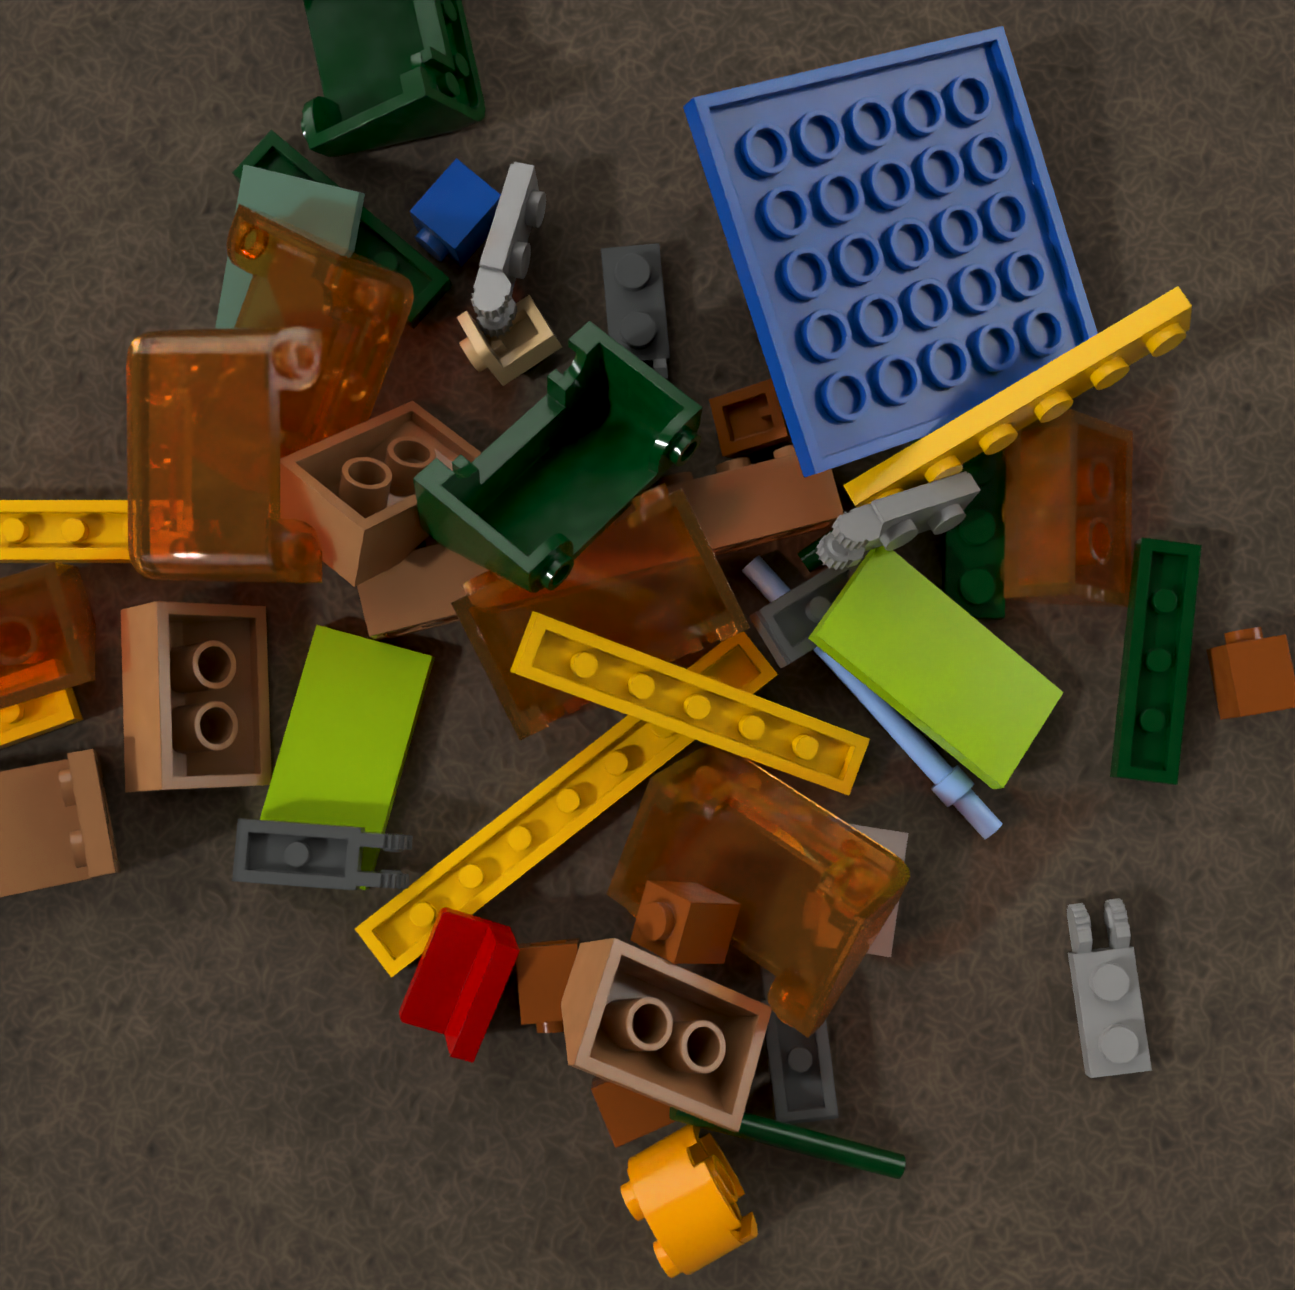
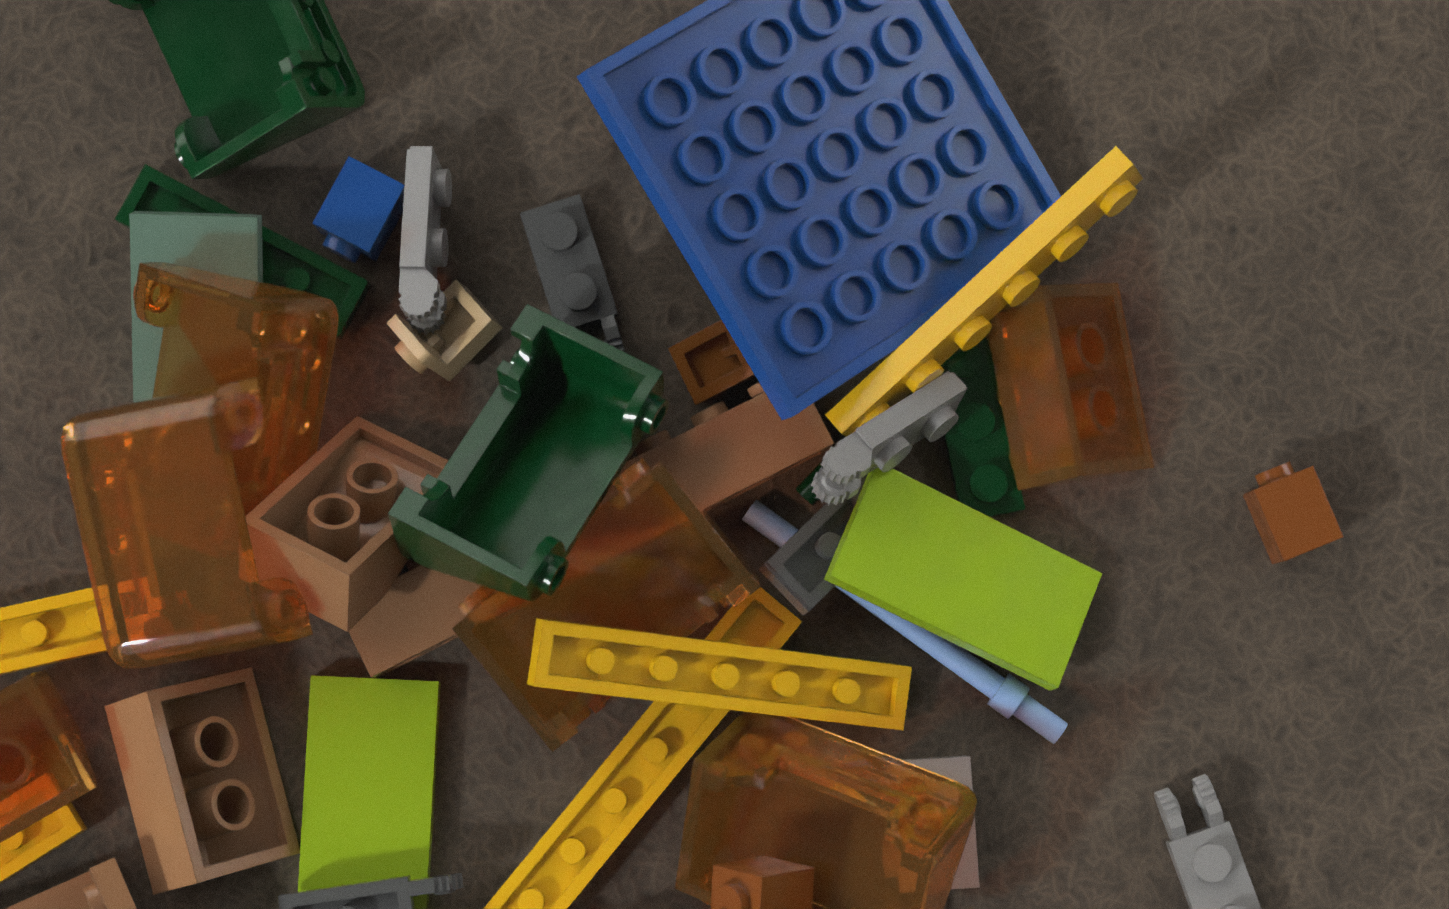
camera: 15 degrees left, 0 degrees up
(1155, 661) = (1190, 520): dark green plate -> none

